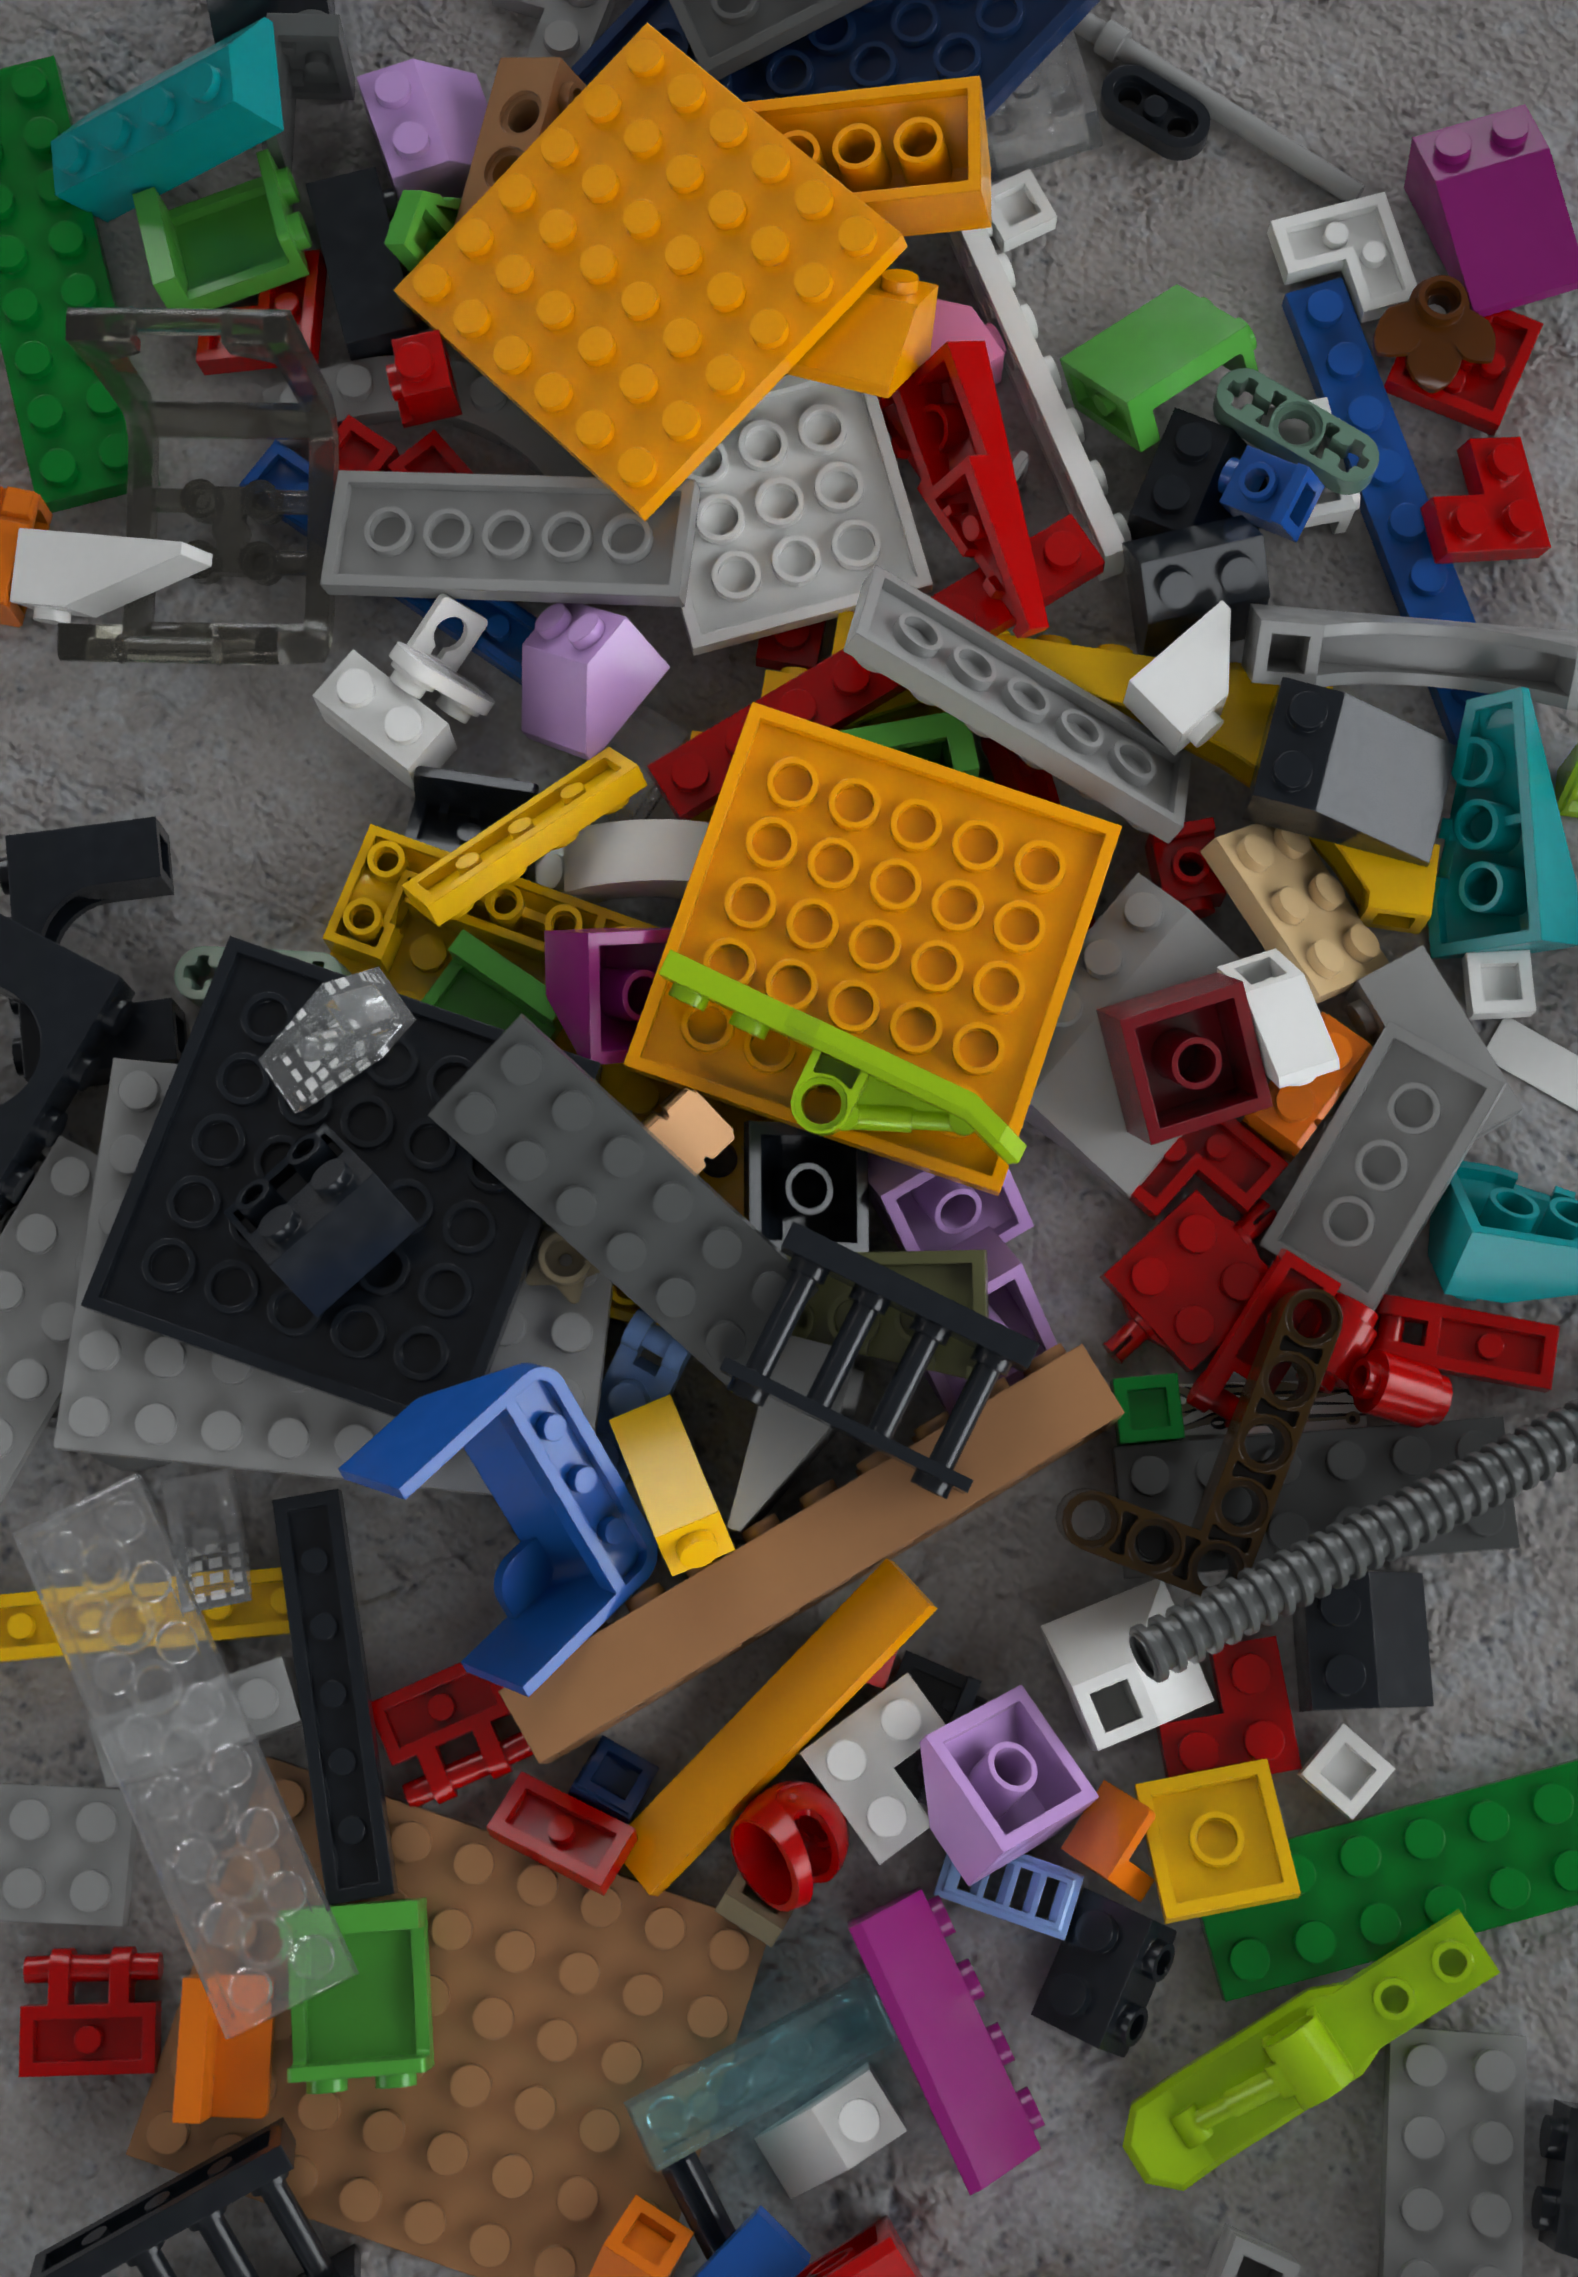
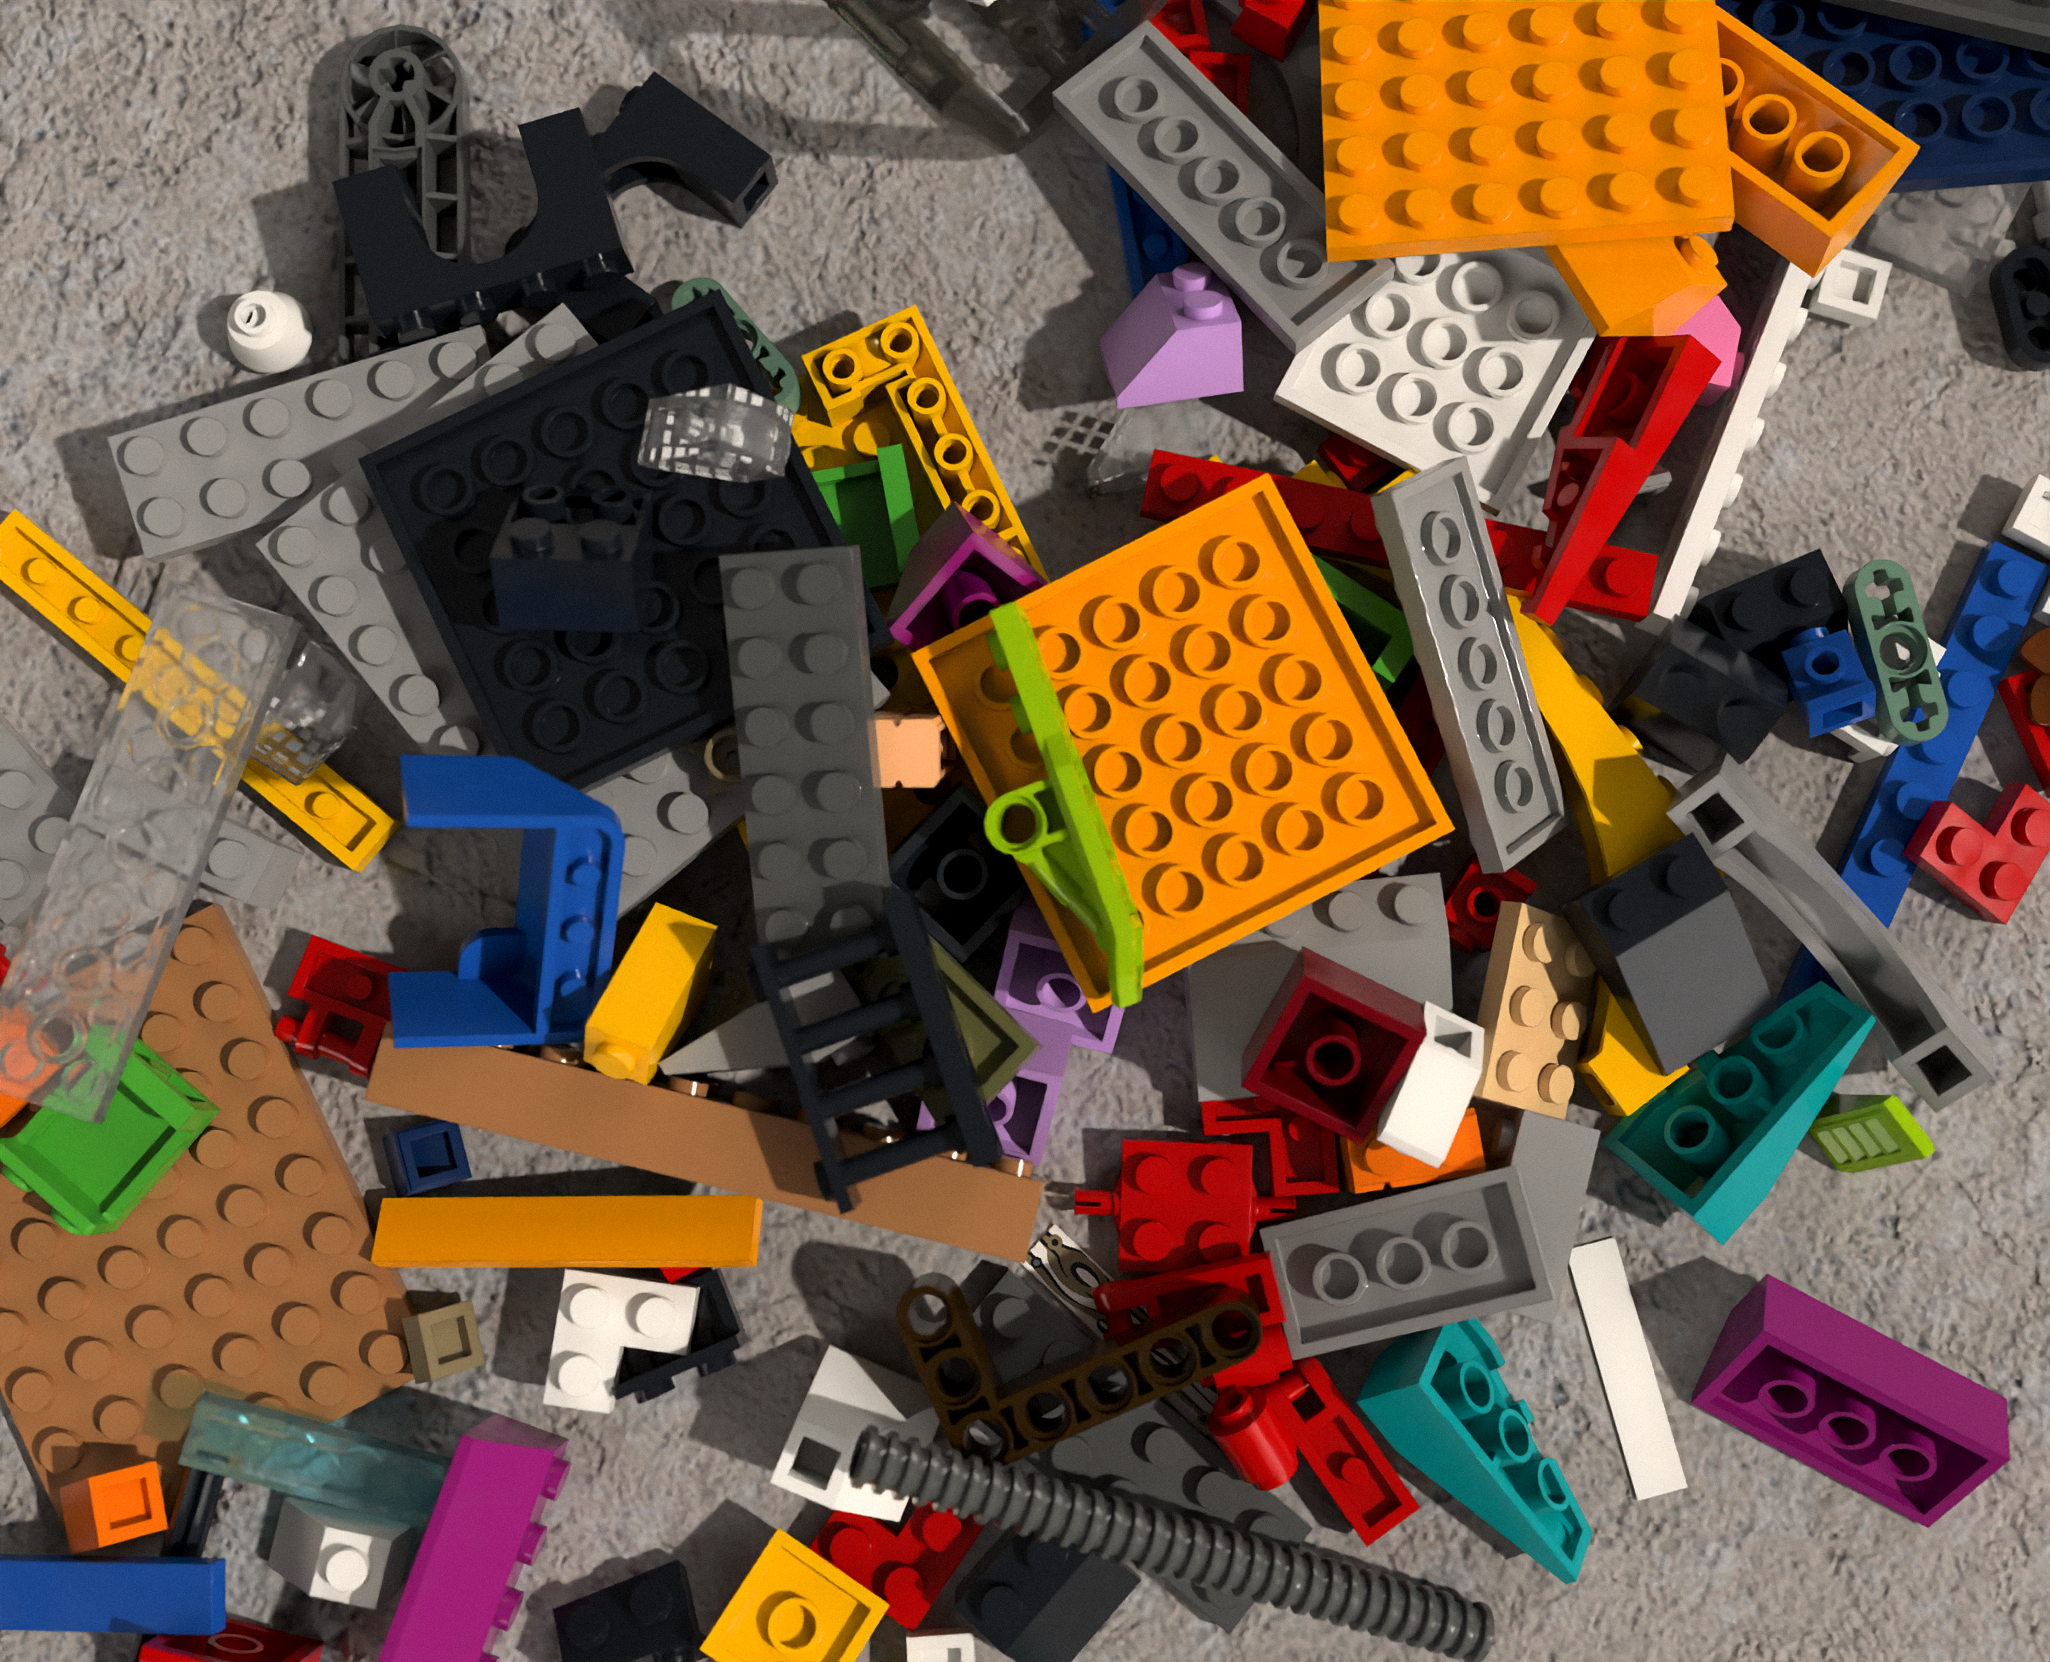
camera: 40 degrees right, 5 degrees up
(334, 1697) = (282, 916): black plate -> none
(383, 719) = (1004, 239): white brick -> none
(422, 671) = (1064, 226): white bracket -> none
(459, 805) = (999, 374): black bracket -> none
(524, 835) = (1011, 417): yellow plate -> none
(562, 1833) = (354, 1160): red plate -> none
(625, 860) = (1068, 500): white arch -> none
(637, 1381) = (702, 892): medium blue plate -> none
(789, 1842) = (499, 1320): red helmet -> none
(999, 1784) = (680, 1433): lavender slope -> none
(1061, 1909) = (616, 1538): light blue slope -> none
(1109, 1836) = (722, 1547): orange panel -> none
(1150, 1409) = (1058, 1268): green plate -> none
(1151, 359) = (1840, 496): bright green panel -> none
(1186, 684) = (1616, 767): white slope -> none
(1498, 984) = (1630, 1212): white plate -> none

